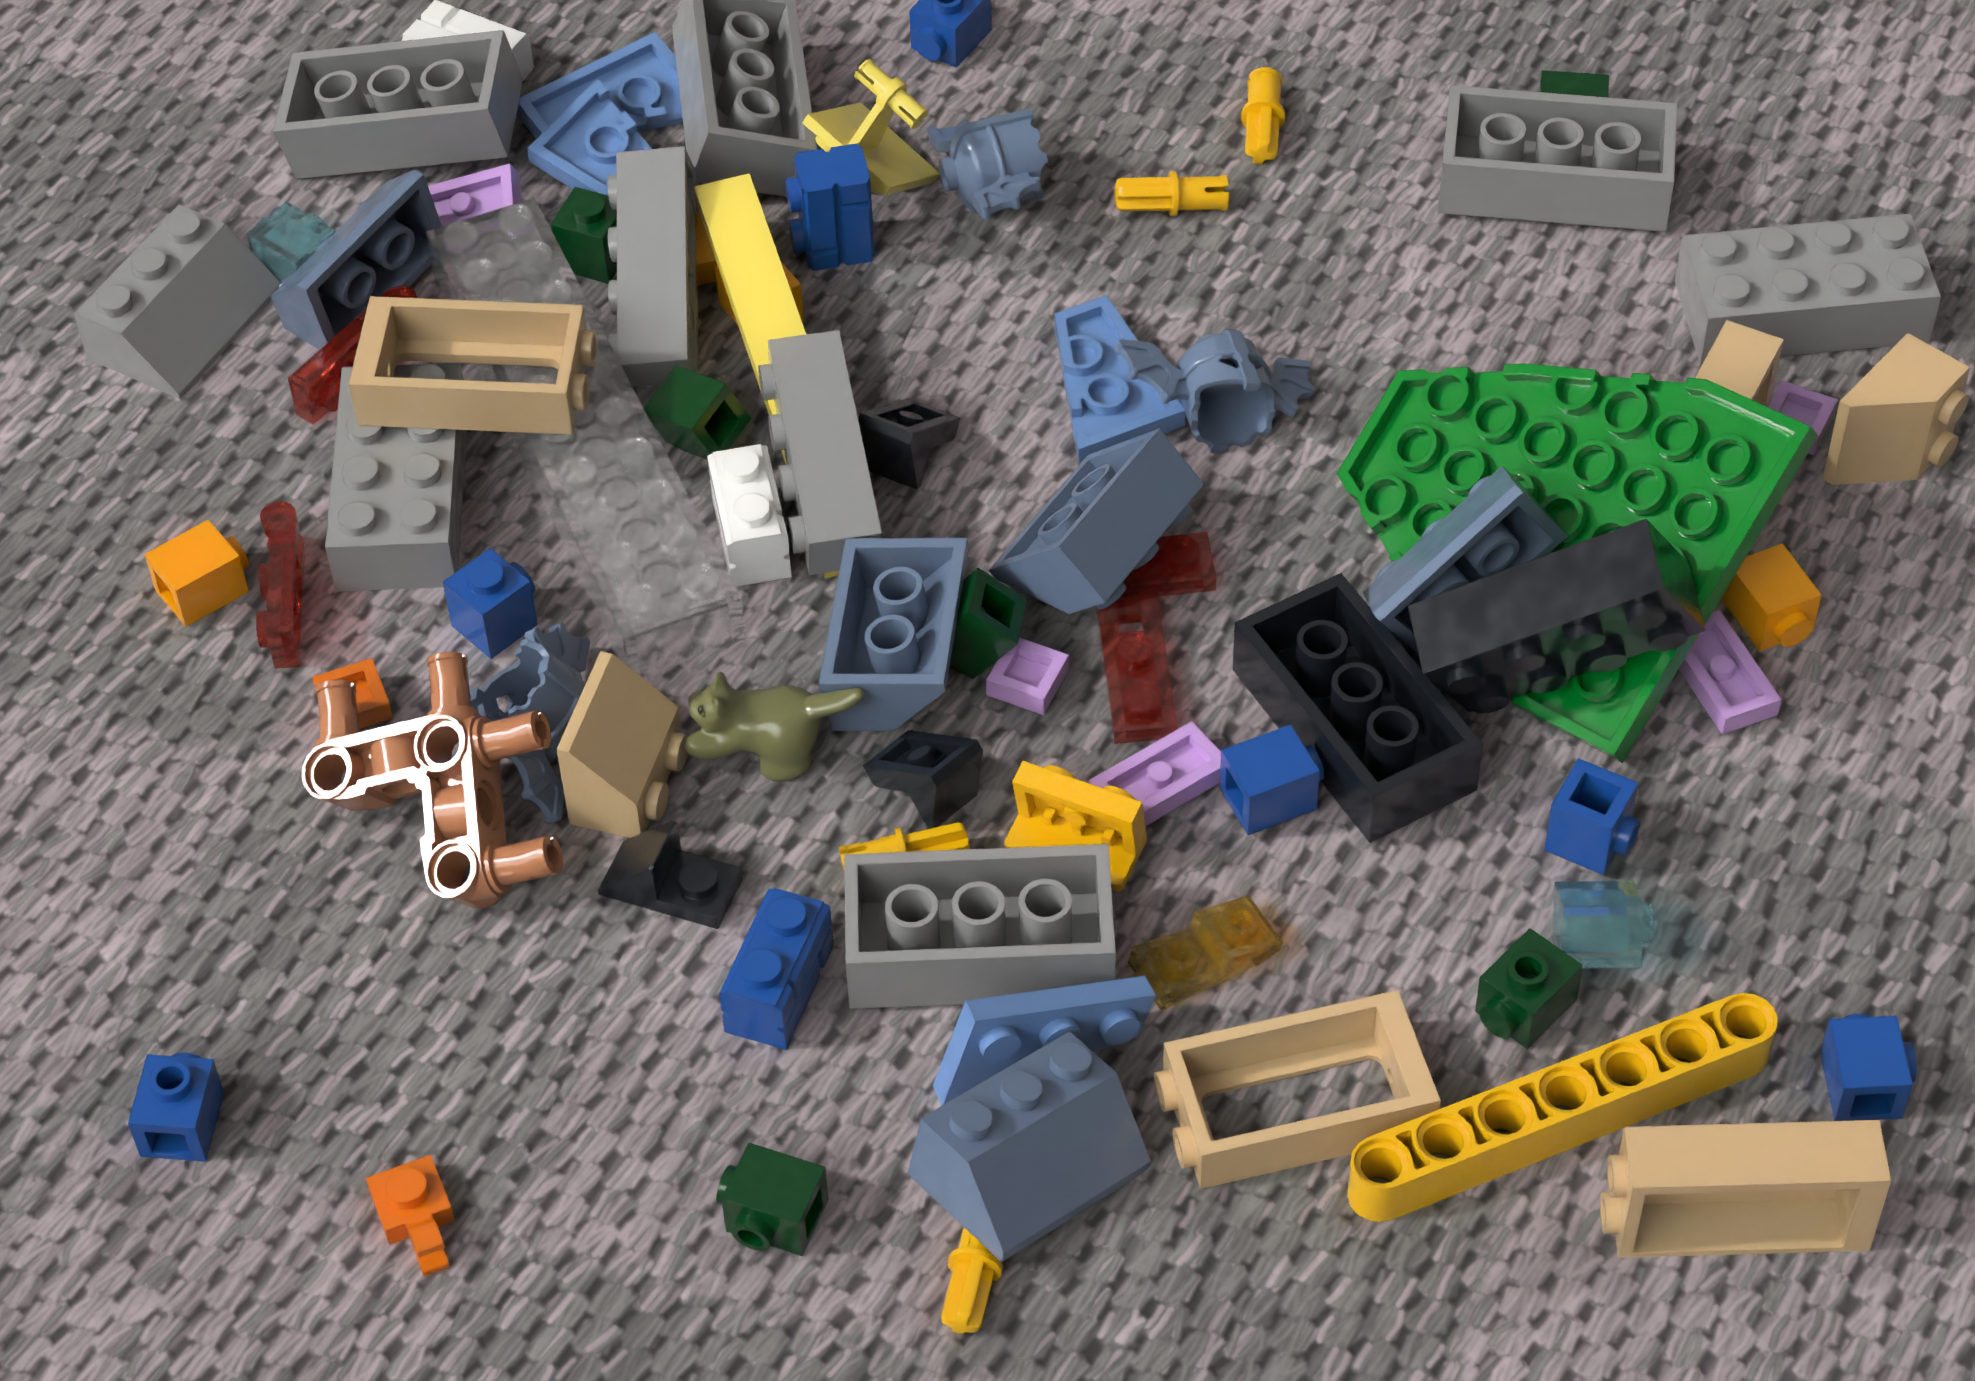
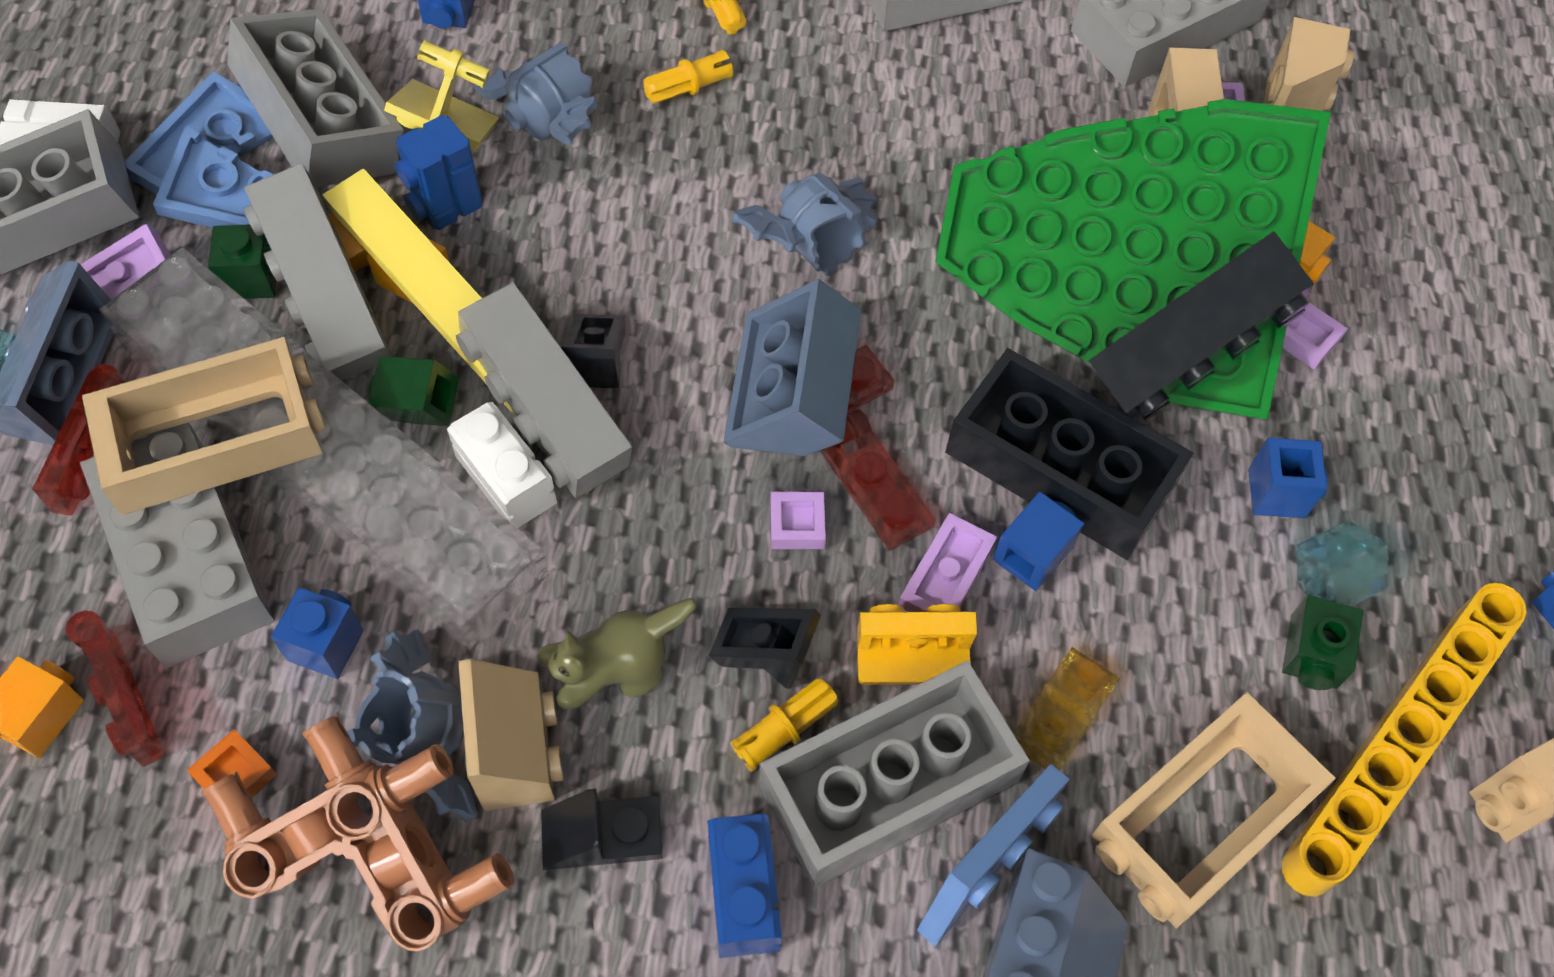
camera: 30 degrees left, 10 degrees up
(893, 627) = (684, 523): sand blue slope -> none
(986, 623) = (740, 494): dark green brick -> none
(1100, 396) = (721, 251): medium blue wing -> none
(1482, 536) = (1088, 300): sand blue slope -> none

